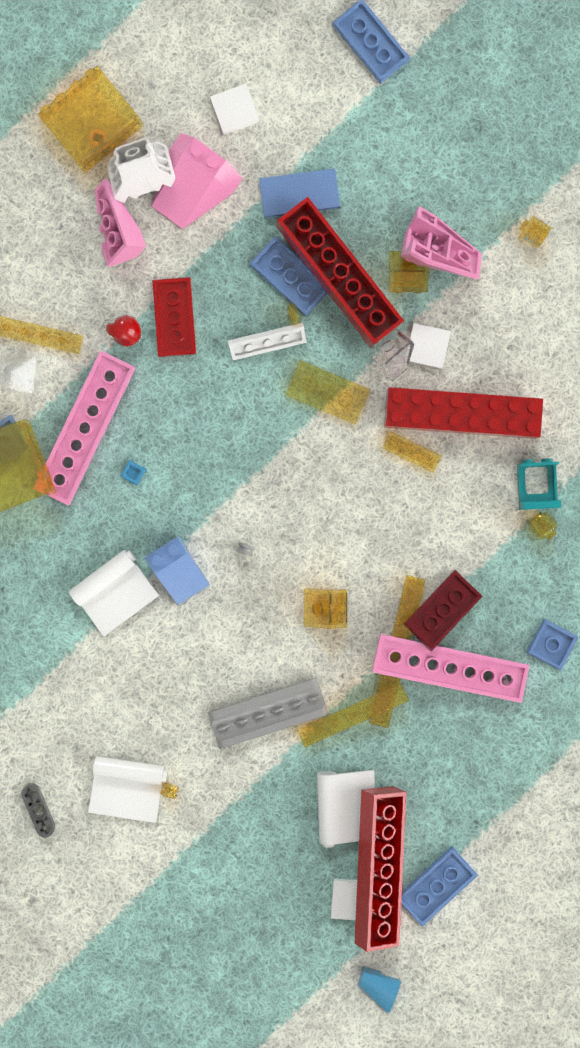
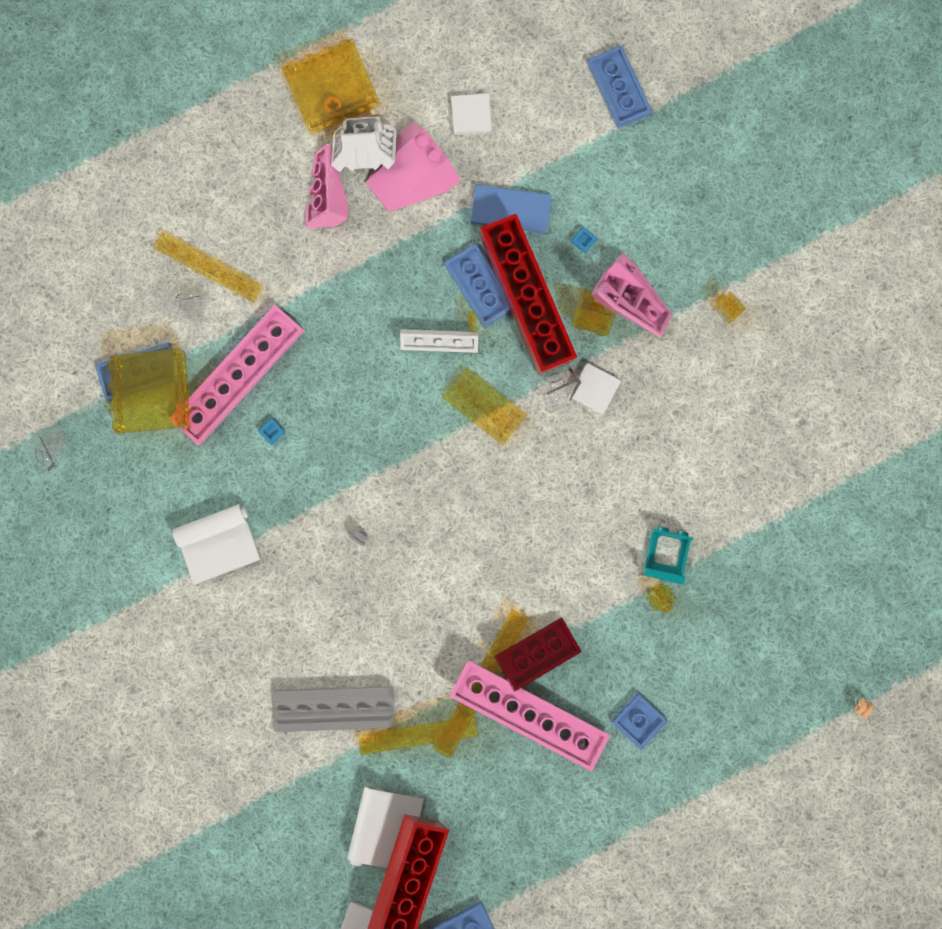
camera: 20 degrees right, 5 degrees down
(38, 795) = (68, 748): dark grey beam -> none
(124, 330) = (304, 291): red piece -> none
(126, 789) = (169, 746): white door -> none
(169, 790) = (211, 760): clear yellow bush -> none
(174, 317) = (356, 293): red tile -> none
(177, 570) = (285, 539): medium blue slope -> none
(325, 608) = (421, 619): clear yellow slope -> none
(378, 204) = (584, 240): none -> dark azure tile
(411, 452) = (550, 487): clear yellow tile -> none
(463, 413) = (612, 463): red brick -> none

